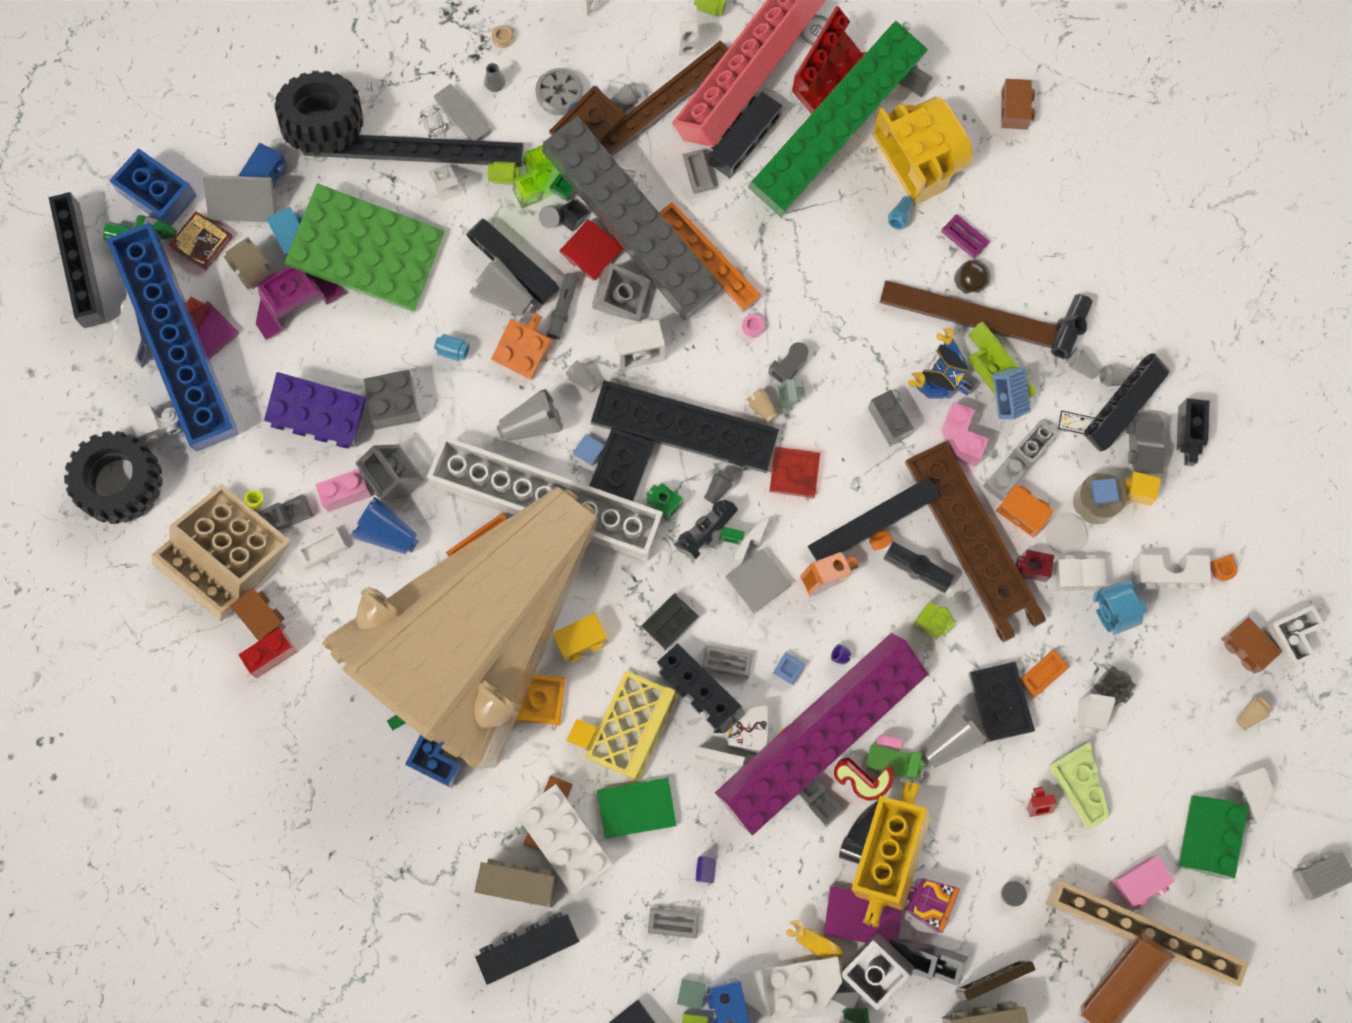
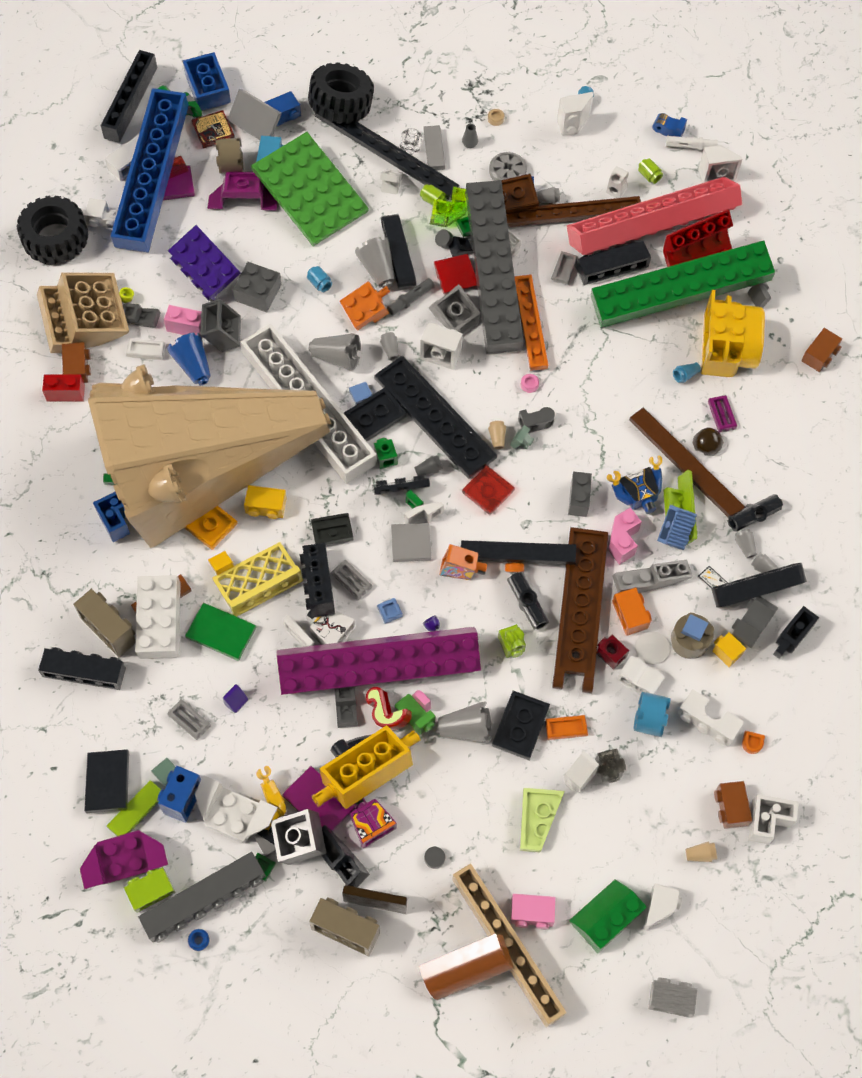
camera: 35 degrees right, 10 degrees down
(1041, 804) = (498, 809): red tile -> none

